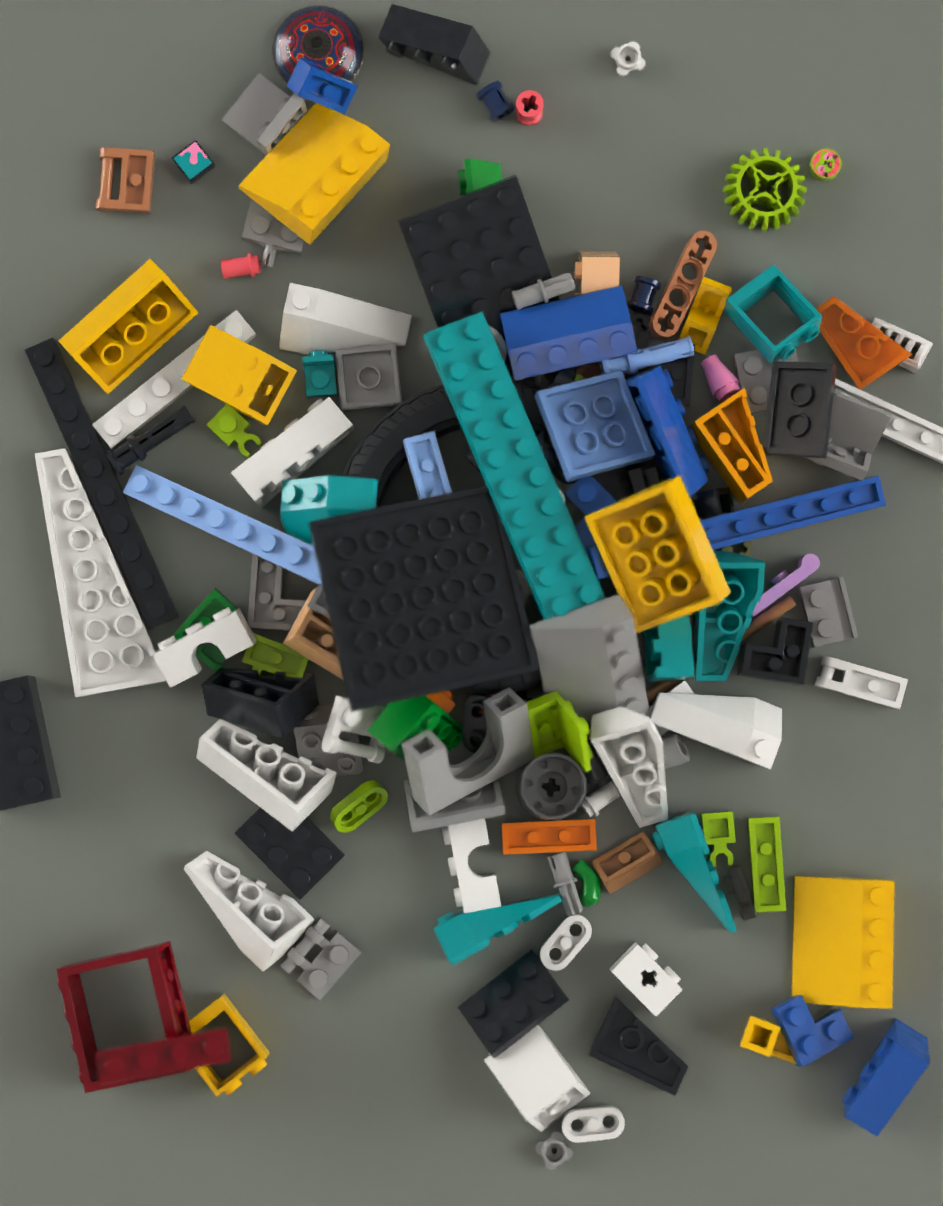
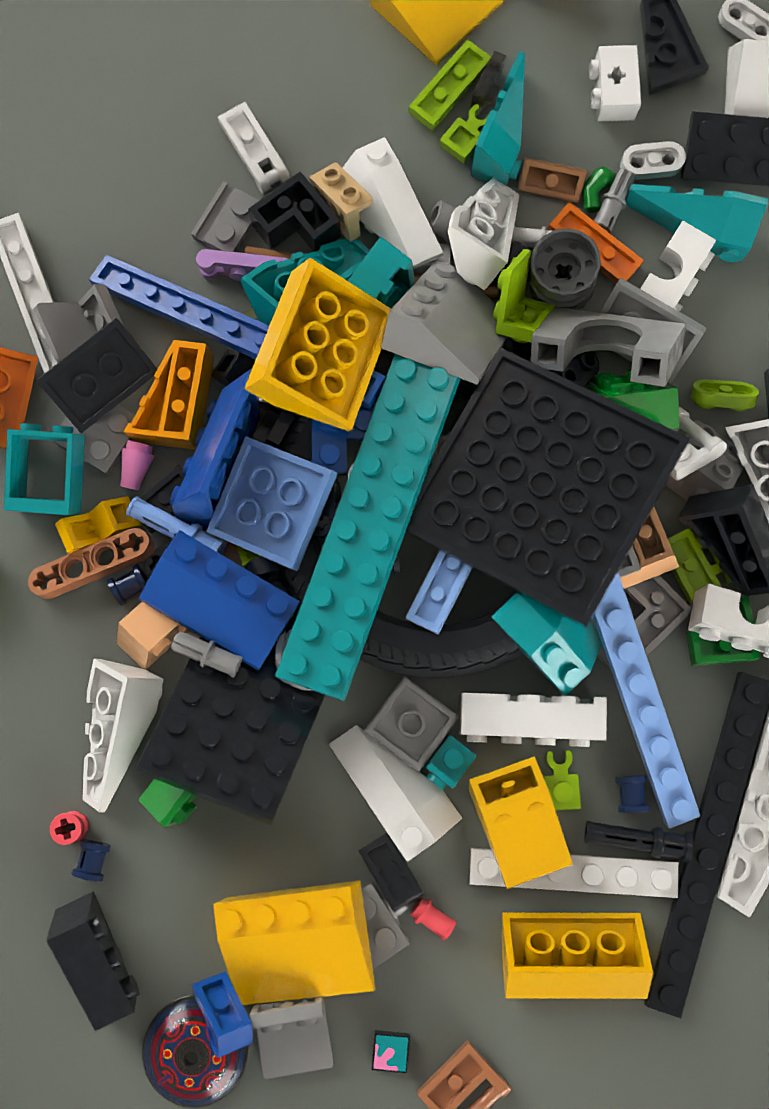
camera: 140 degrees left, 5 degrees down
(180, 465) = (632, 793): none -> dark blue bush
(293, 268) = (391, 872): none -> black plate
(565, 208) = (122, 710): none -> white wedge
(759, 696) = (343, 197): none -> tan bracket

